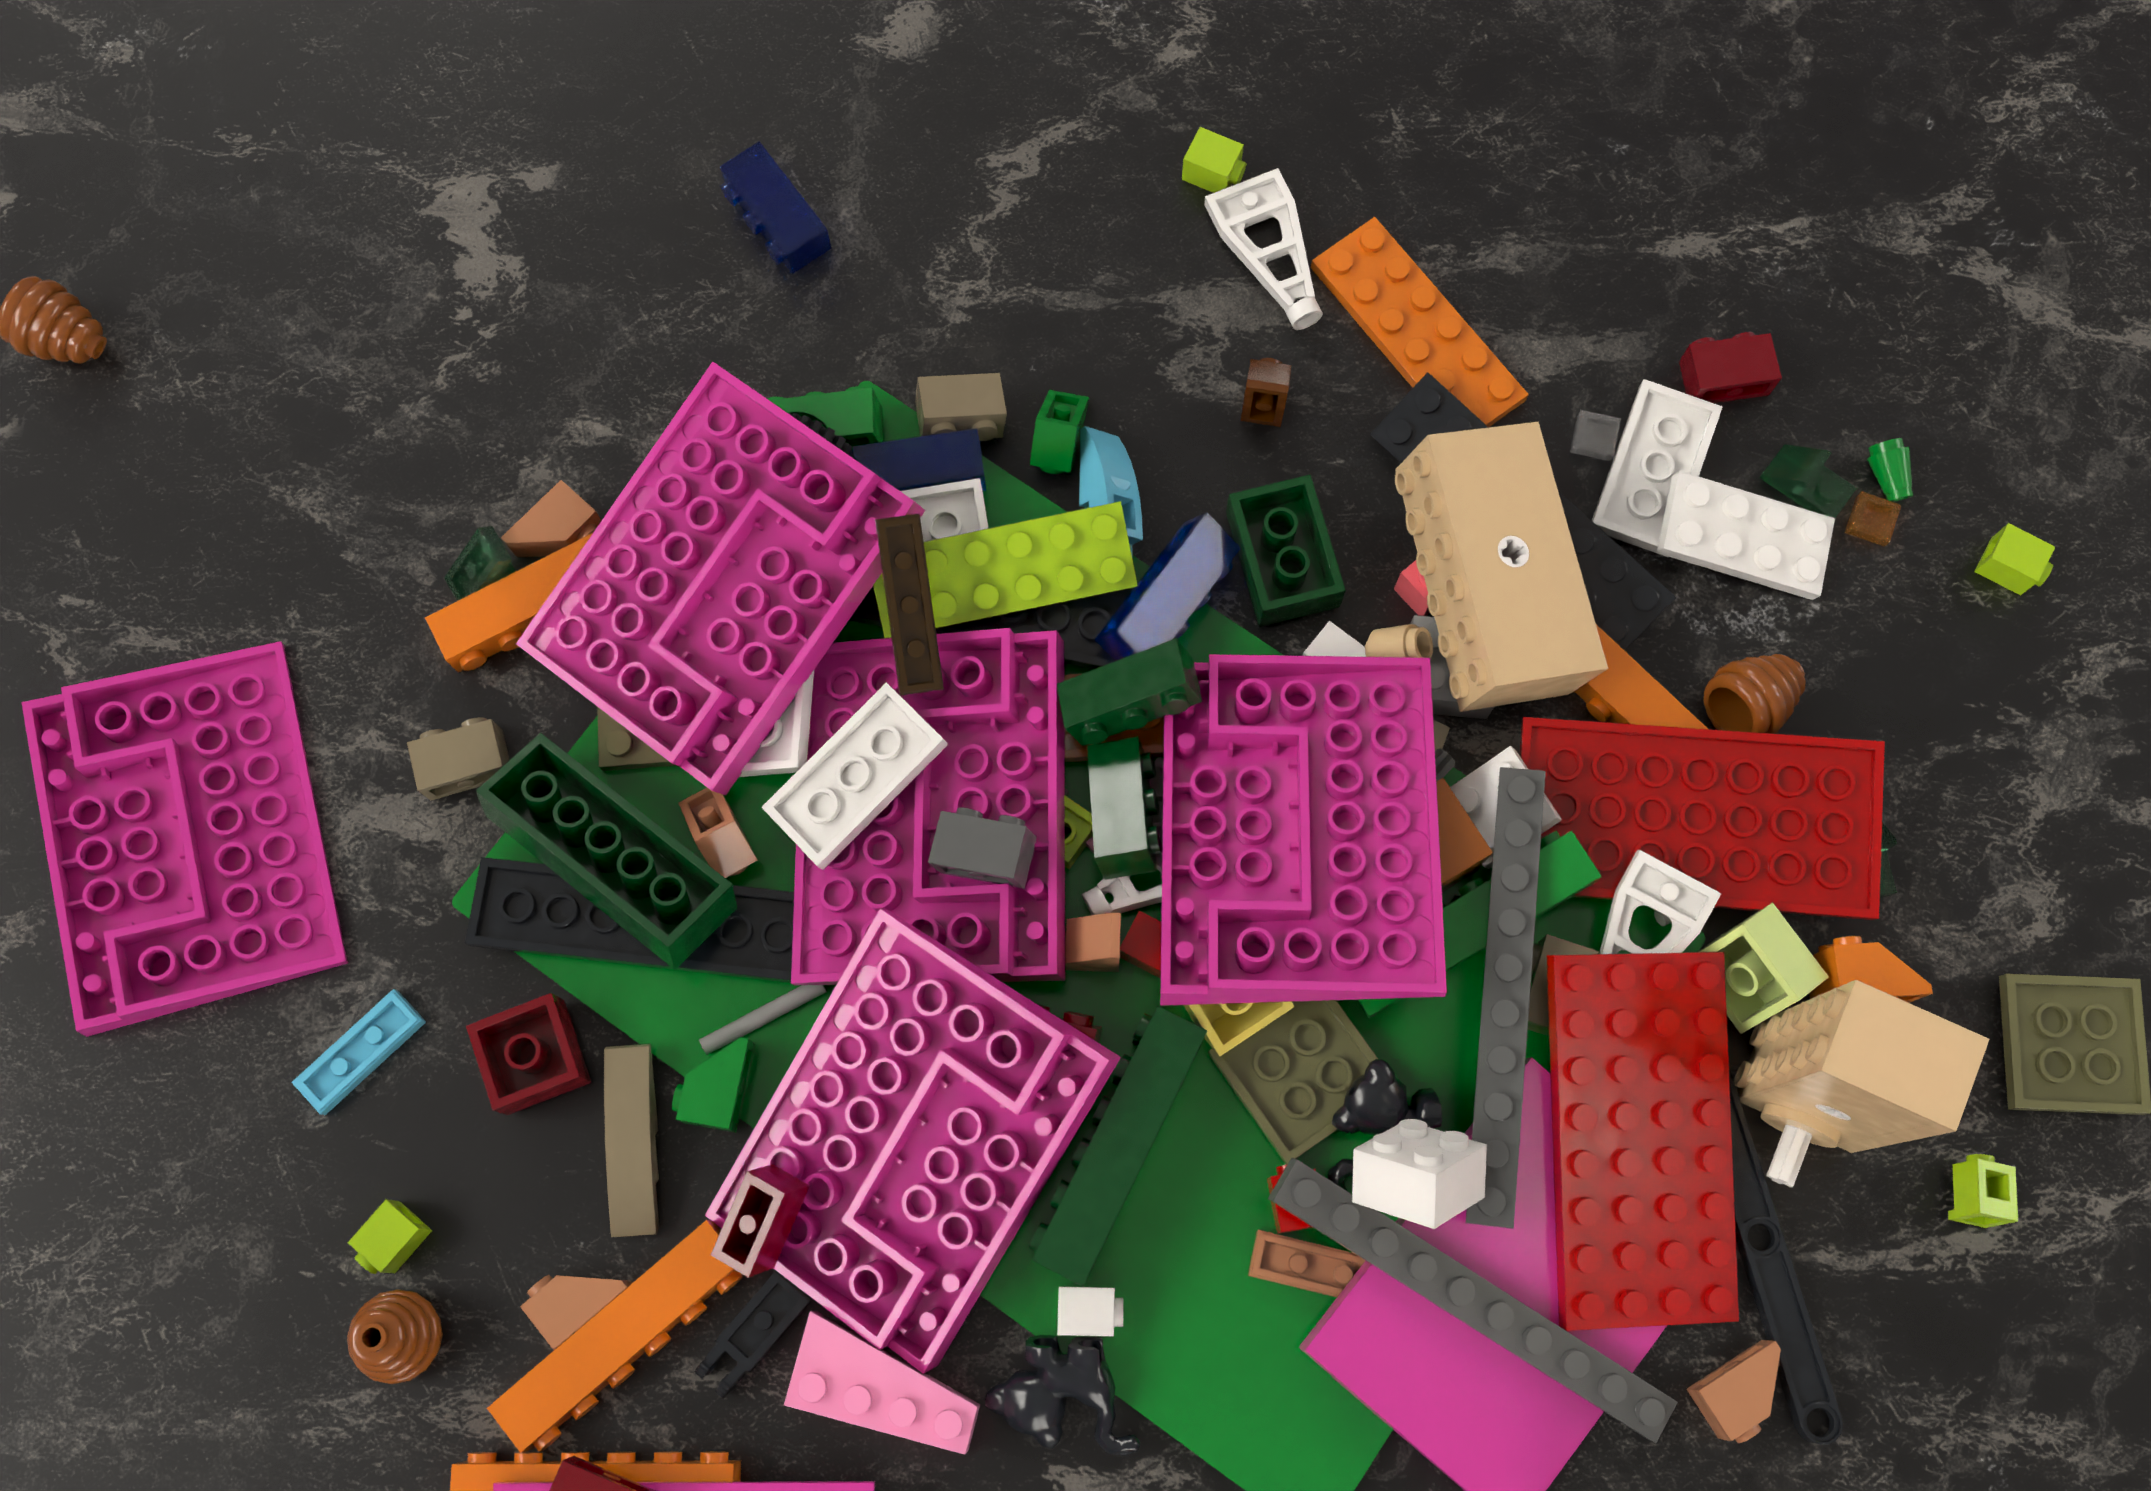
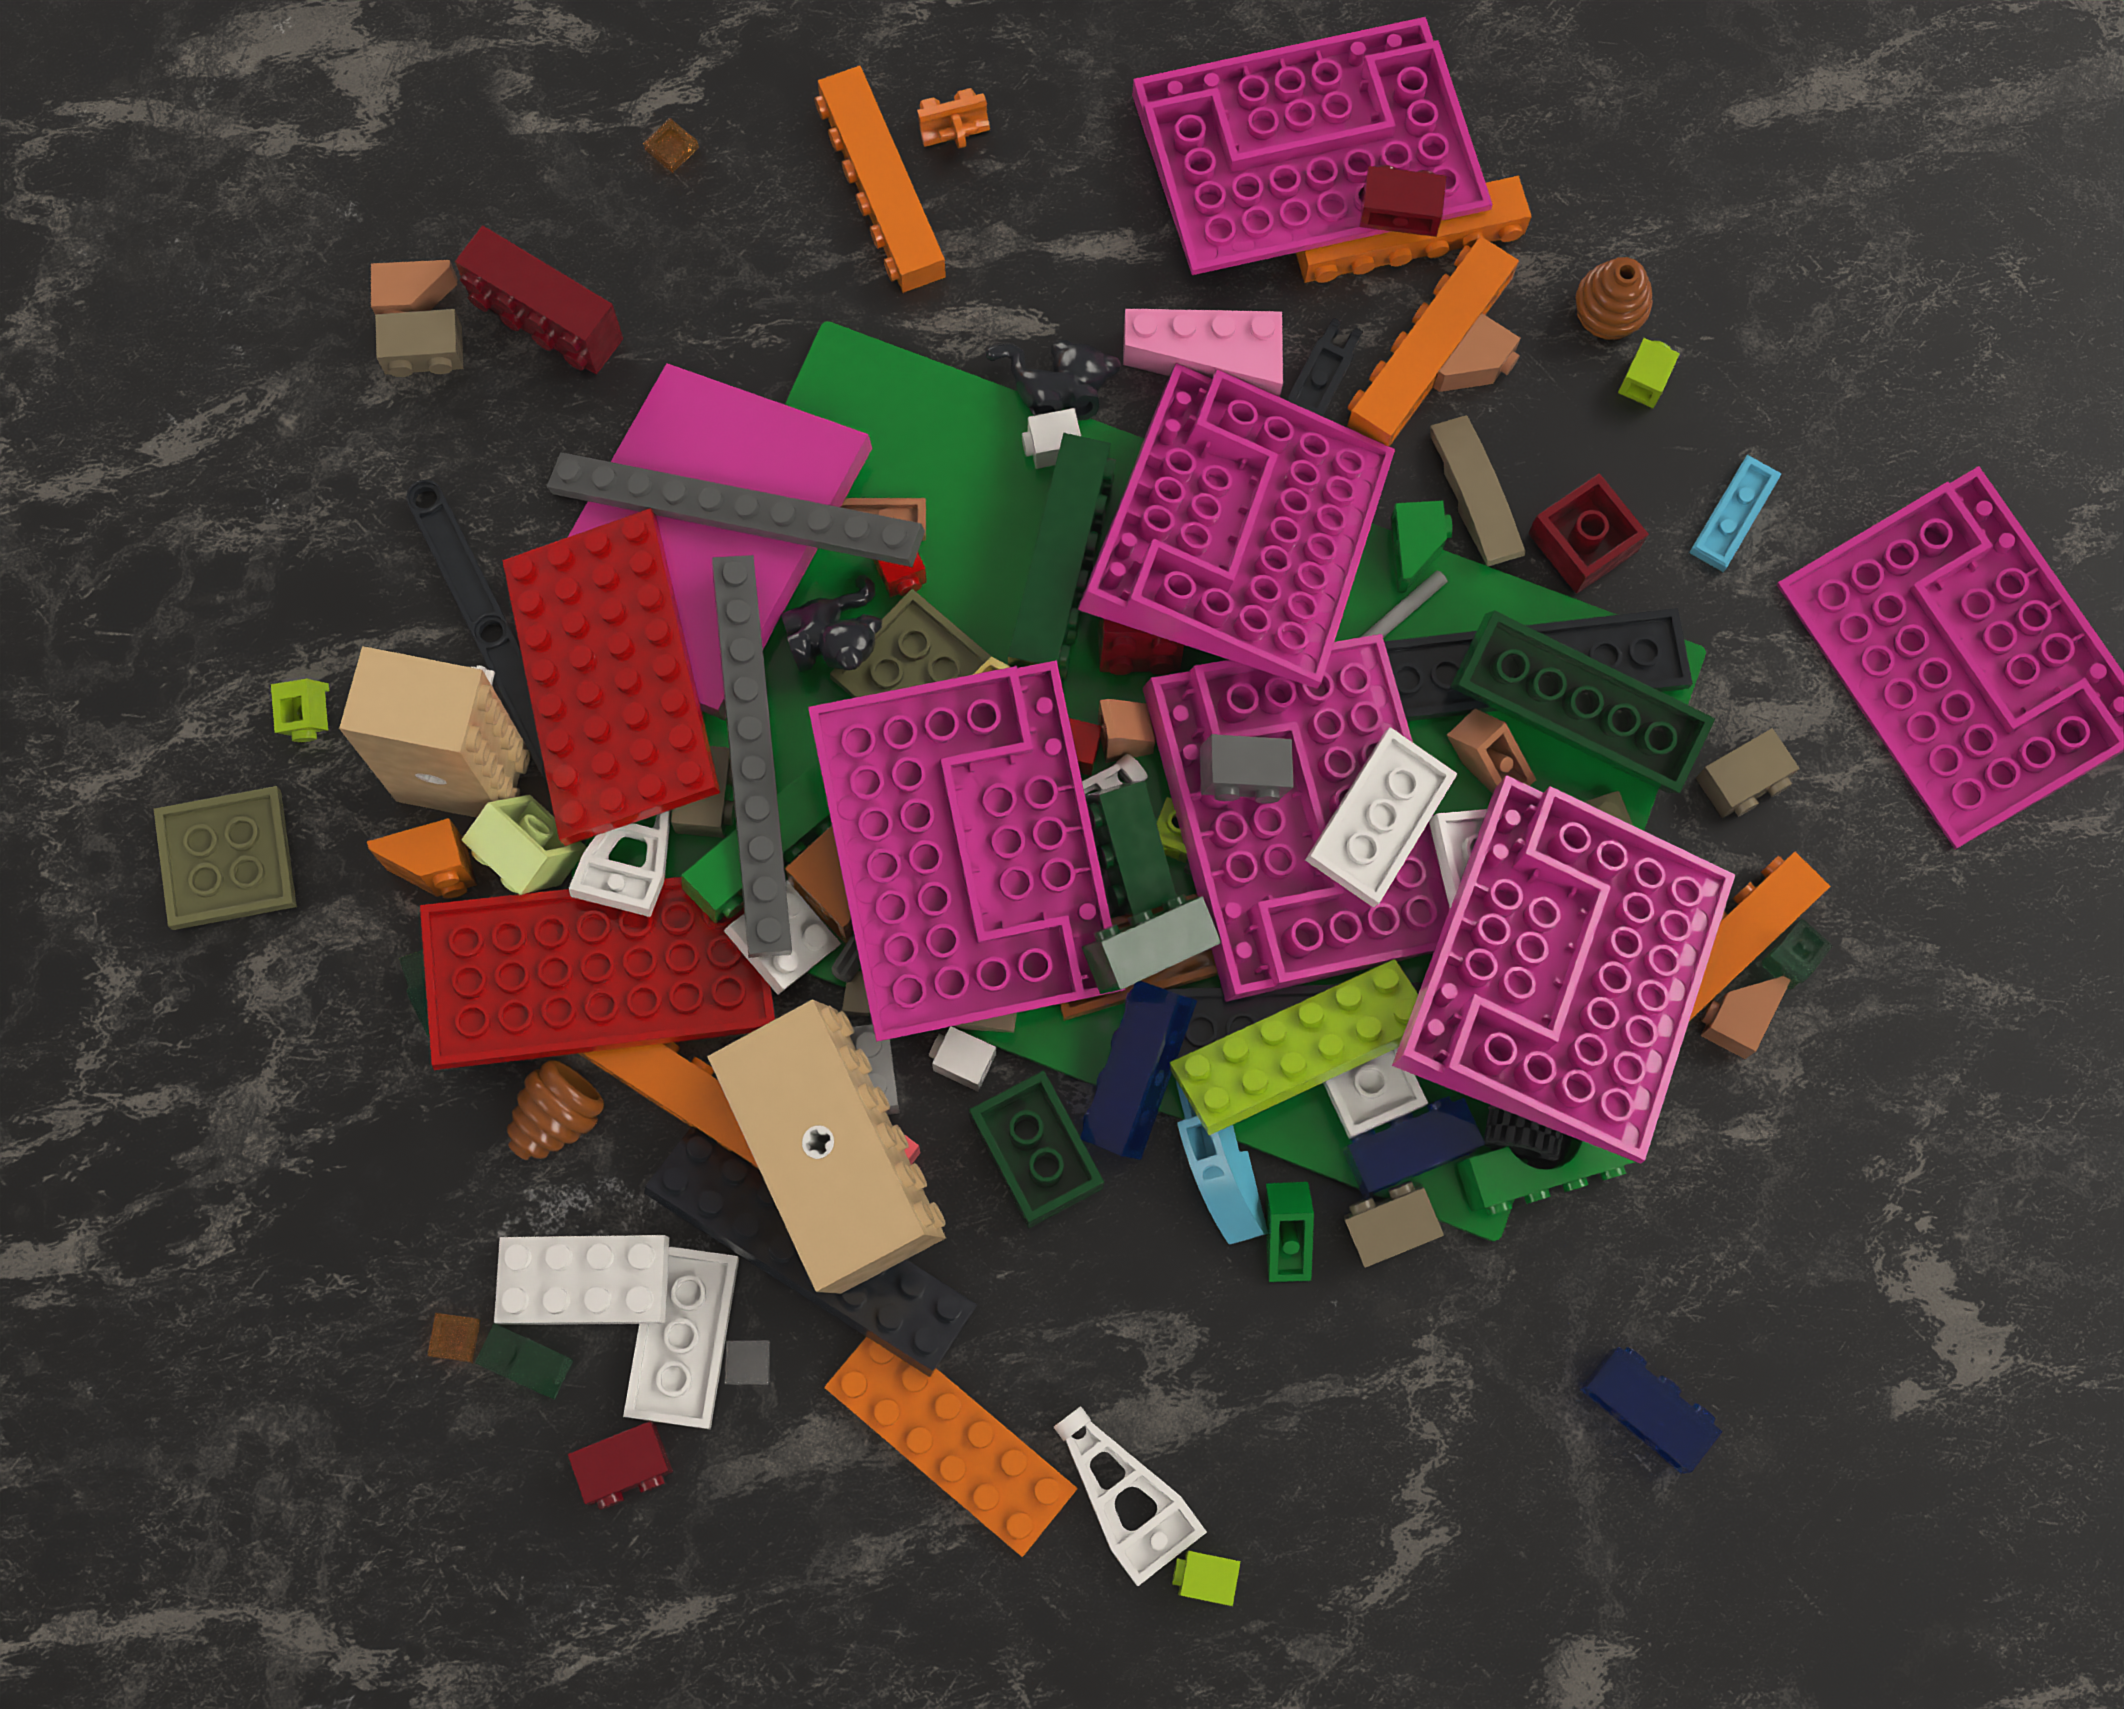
camera: 160 degrees right, 0 degrees up
(760, 1220) = (1345, 435): dark red brick -> none
(909, 604) = (1379, 968): dark brown tile -> none
(1266, 392) = (1092, 1321): reddish brown slope -> none
(1400, 642) = (906, 1062): tan brick -> none
(1419, 1173) = (801, 572): white brick -> none
(1739, 1392) = (496, 504): nougat slope -> none
(1892, 468) = (441, 1394): green cone -> none
(2016, 560) = (307, 1319): lime brick -> none

